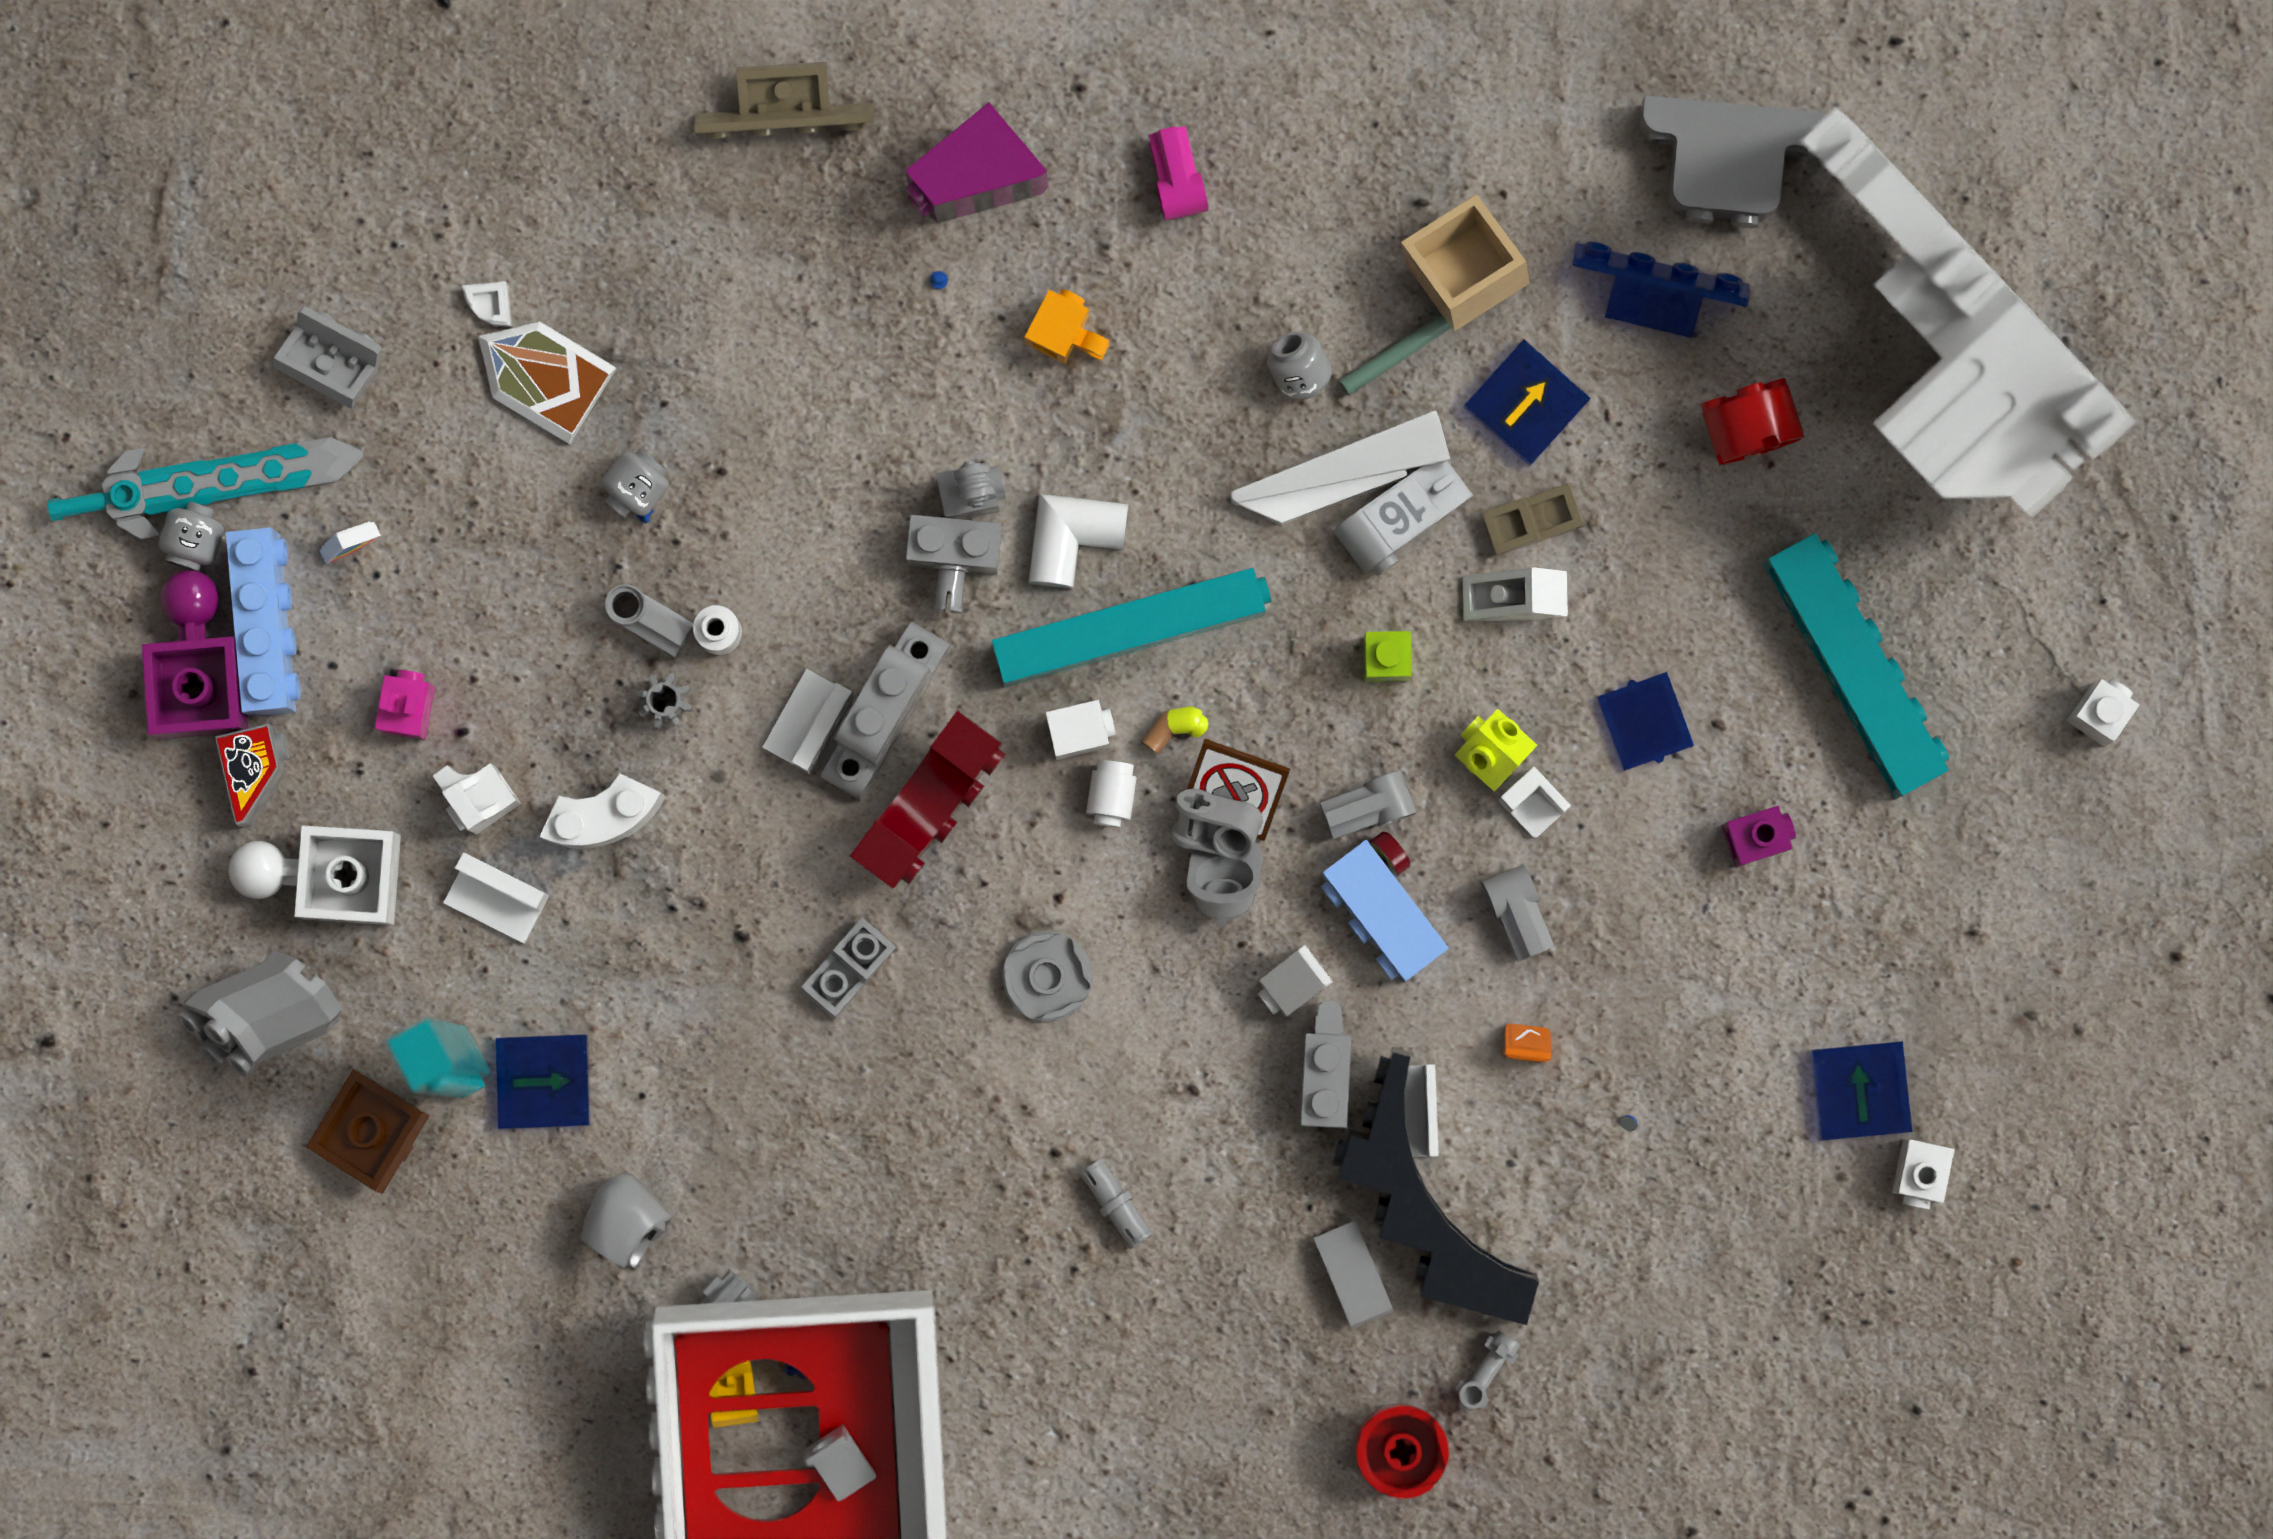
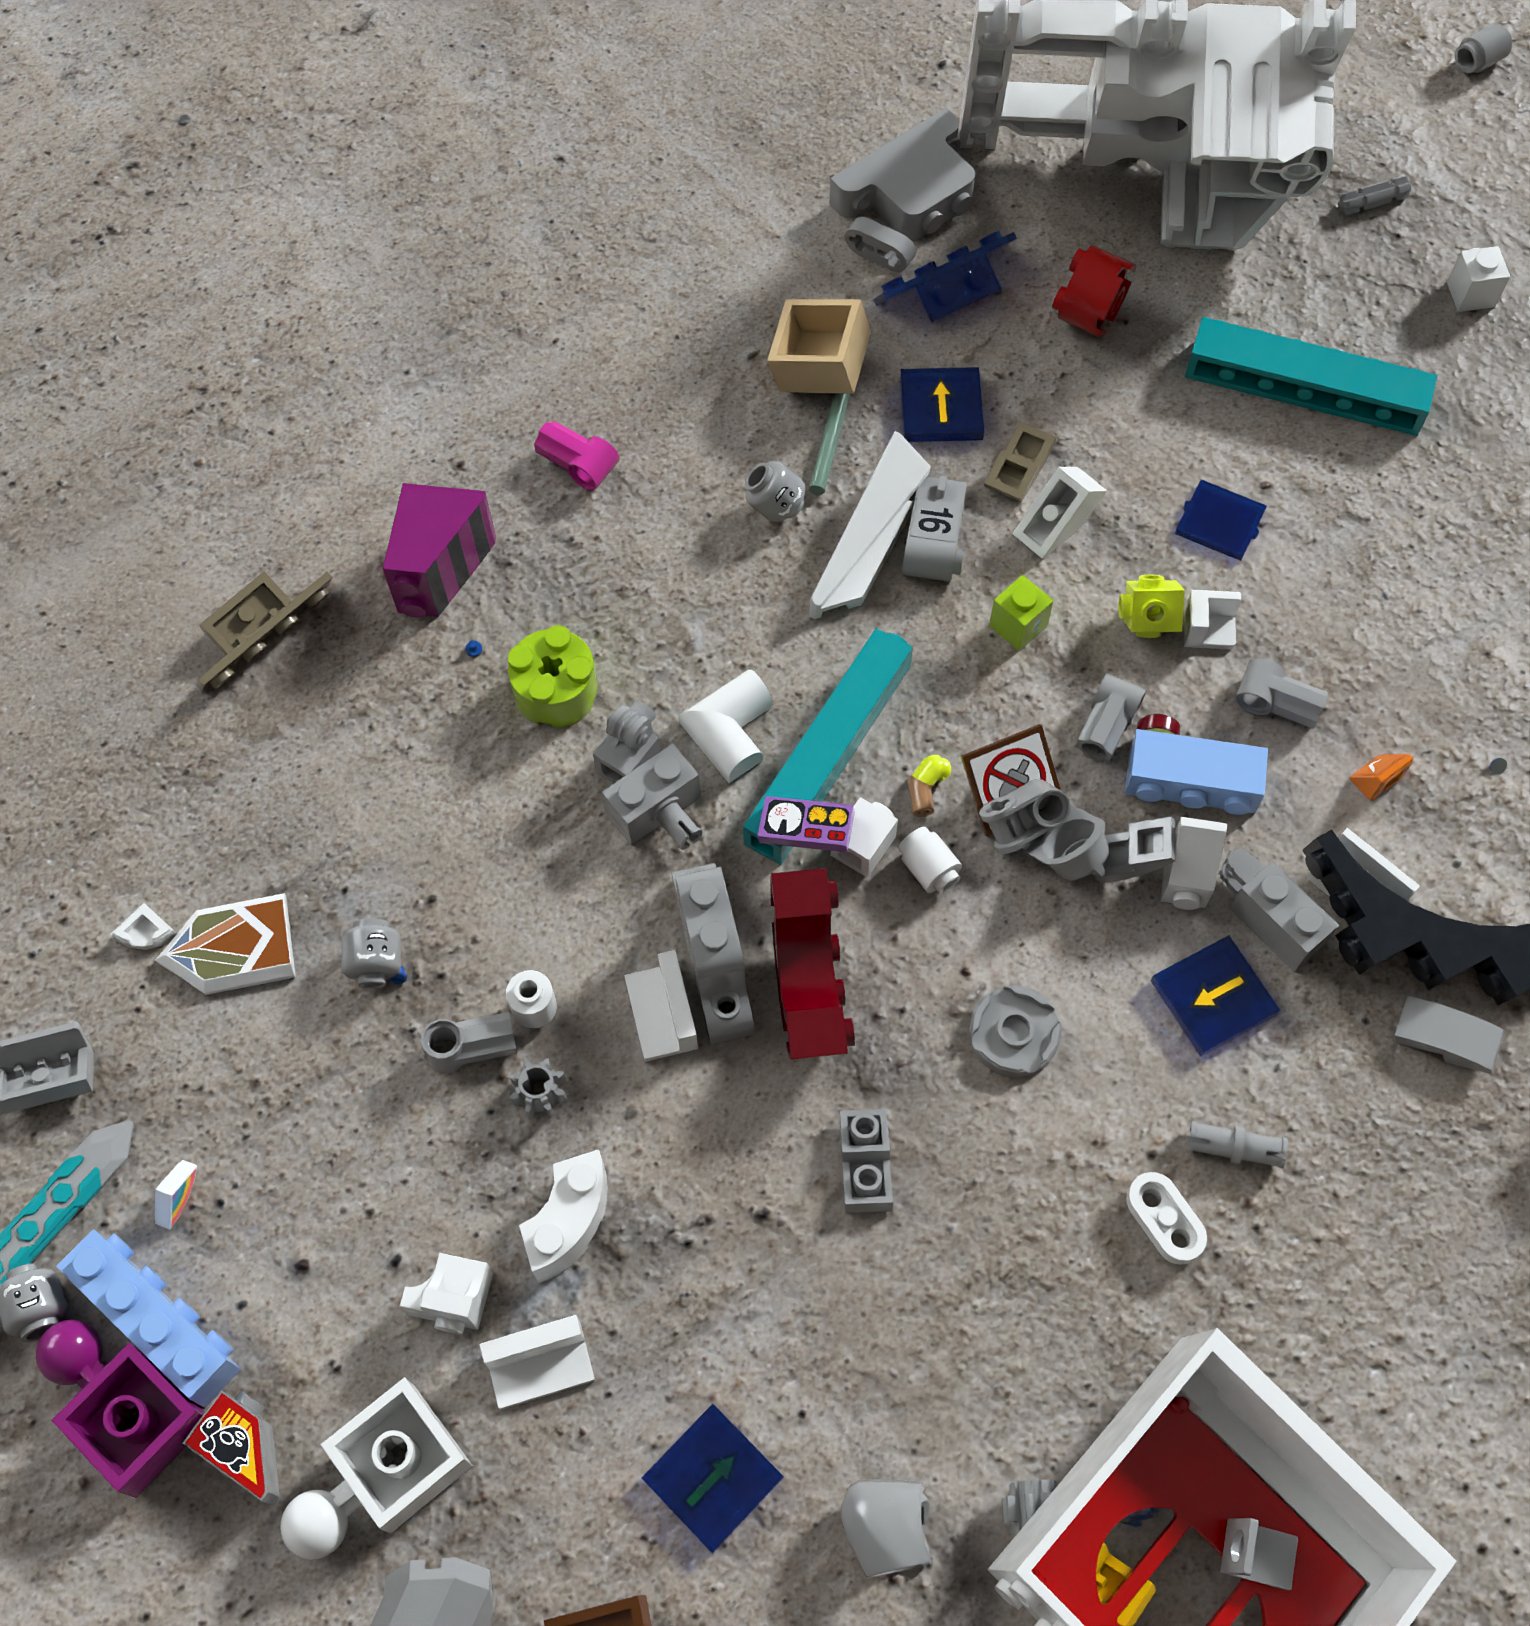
camera: 40 degrees left, 20 degrees down
(405, 705) = (329, 1277): dark pink brick -> none
(440, 1059) = (614, 1513): teal brick -> none
(953, 352) = (553, 677): none -> lime brick
(1013, 1204) = (1169, 1217): none -> white plate
(1035, 685) = (806, 824): none -> tile
(1061, 326) = (590, 602): light orange brick -> none
(1218, 1087) = (1215, 995): none -> clear blue tile
(1266, 932) = (1140, 851): none -> light grey slope
(1631, 196) = (880, 244): none -> light grey beam
(1759, 836) = (1369, 518): magenta brick -> none
(2121, 546) = (1374, 195): none -> light grey axle

